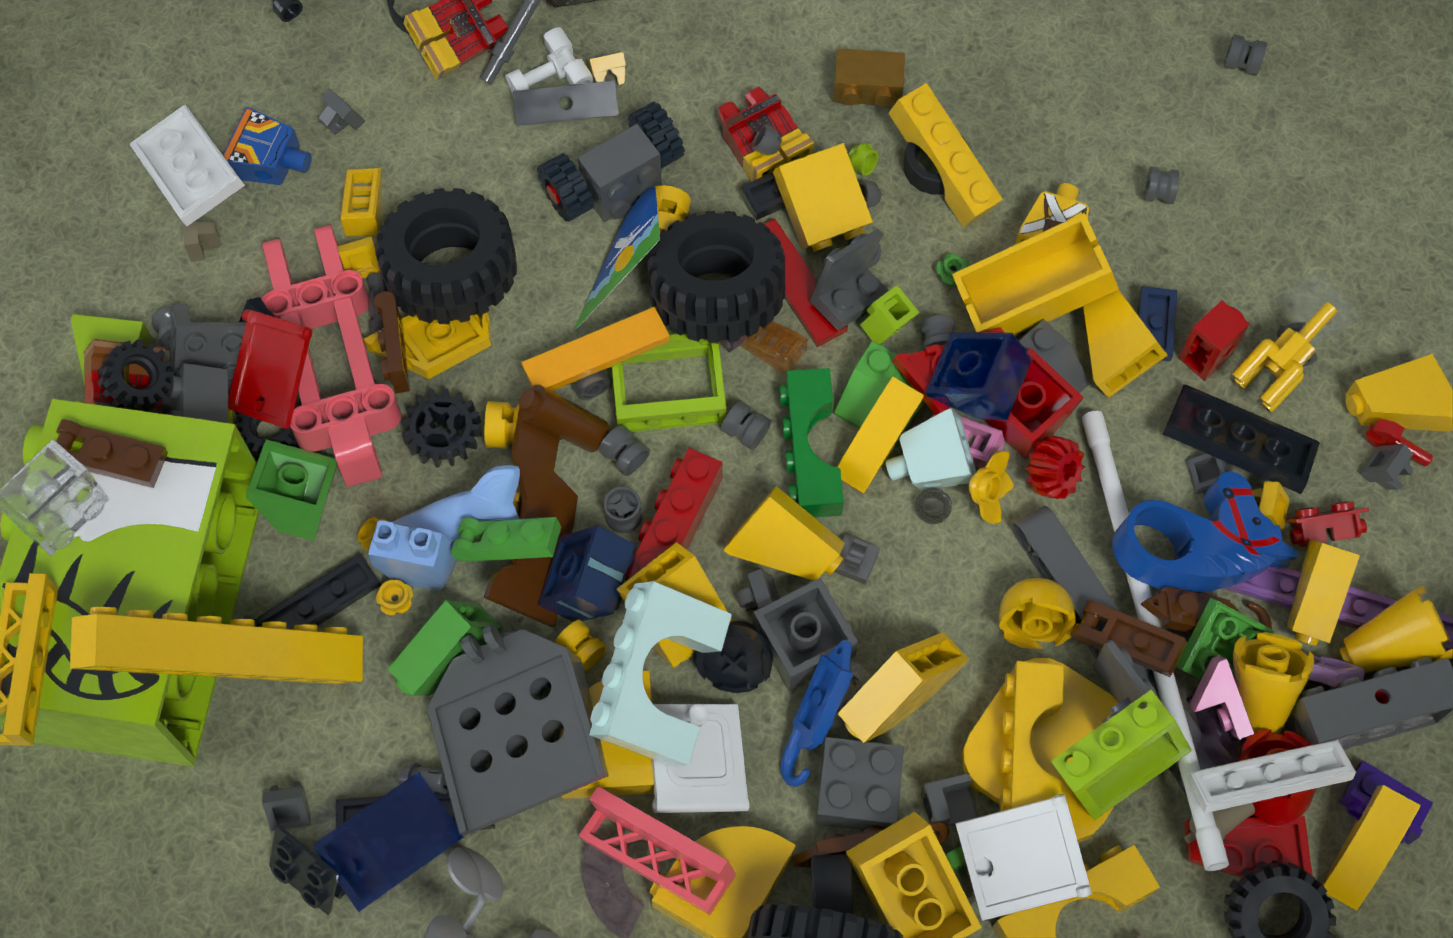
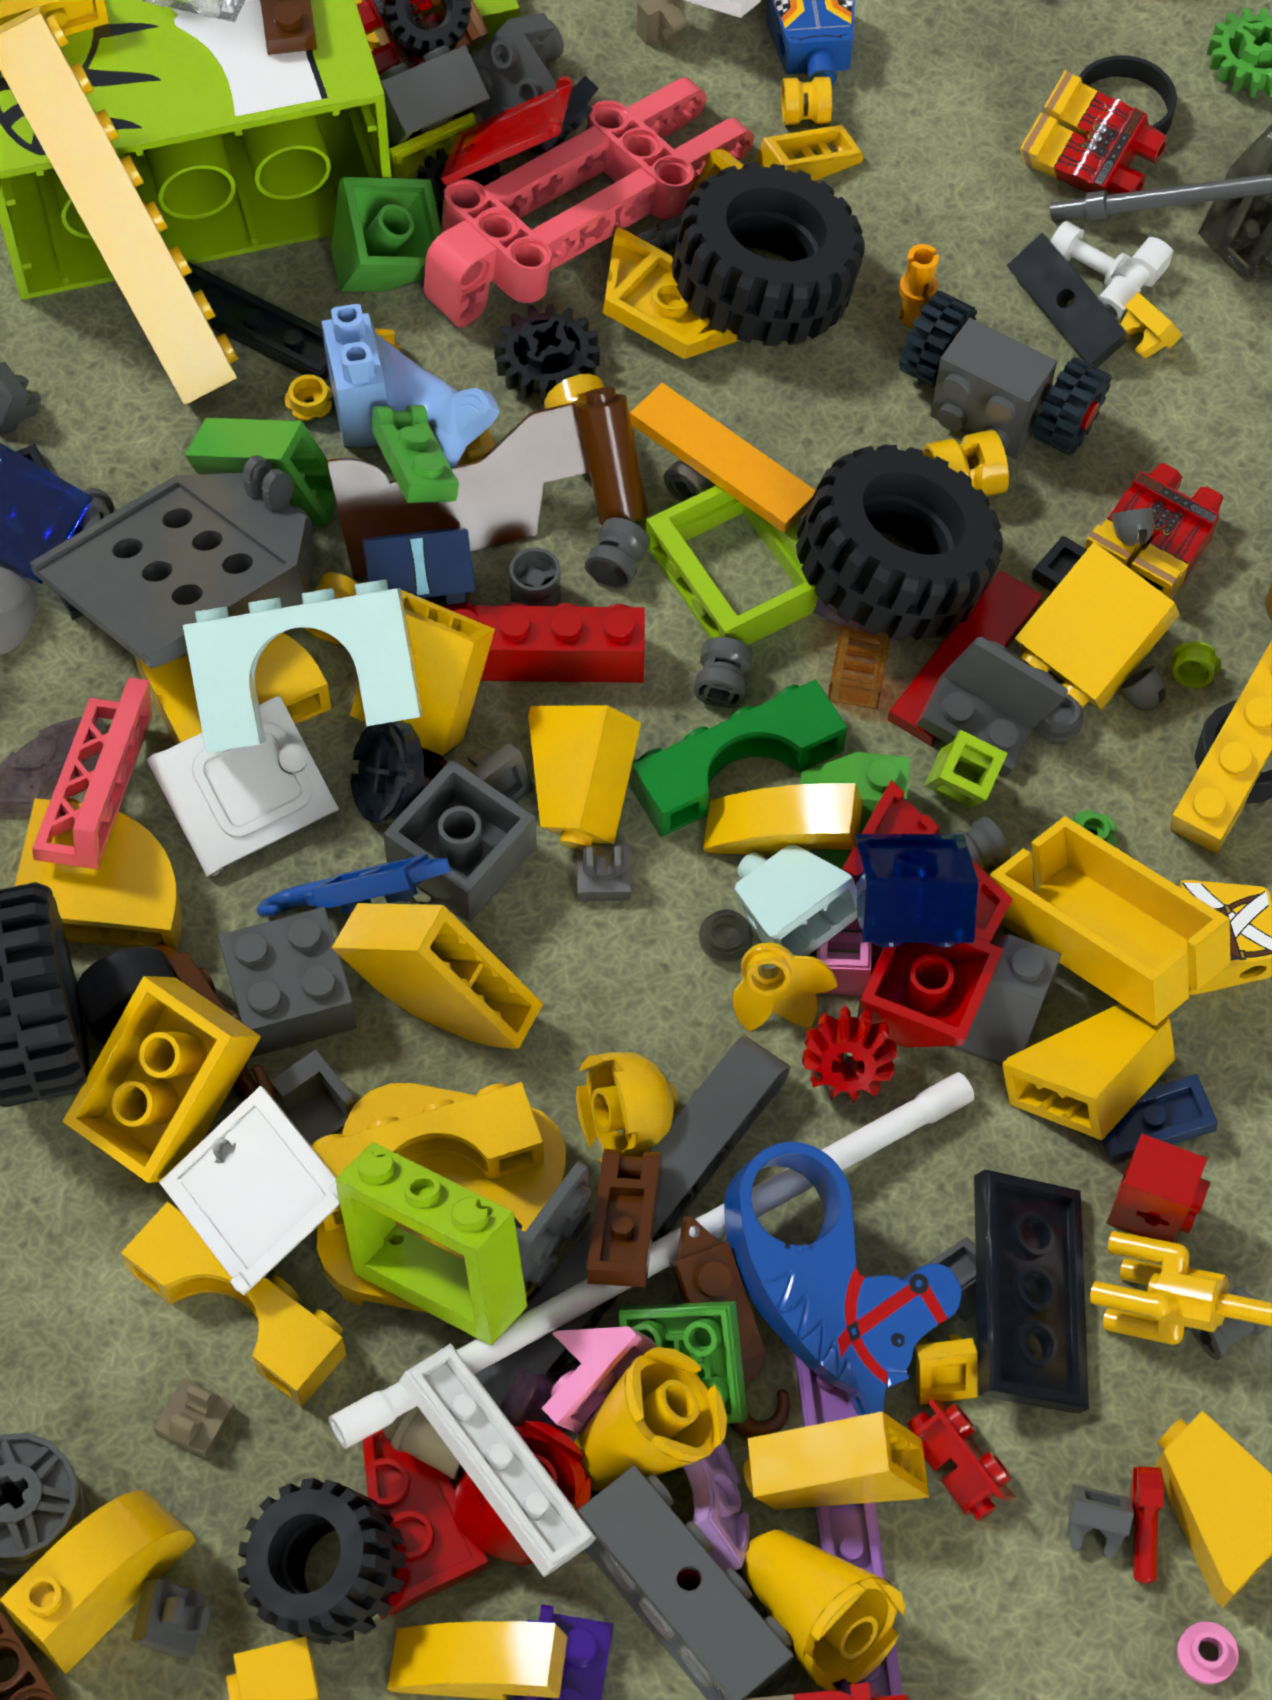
camera: 65 degrees right, 5 degrees down
(319, 181) = (817, 100): none -> yellow wheel
(338, 114) = (911, 81): dark grey tile -> none
(392, 341) = (619, 247): reddish brown plate -> none
(518, 179) = (918, 282): none -> light orange pin
(634, 240) = (886, 437): sticker -> none

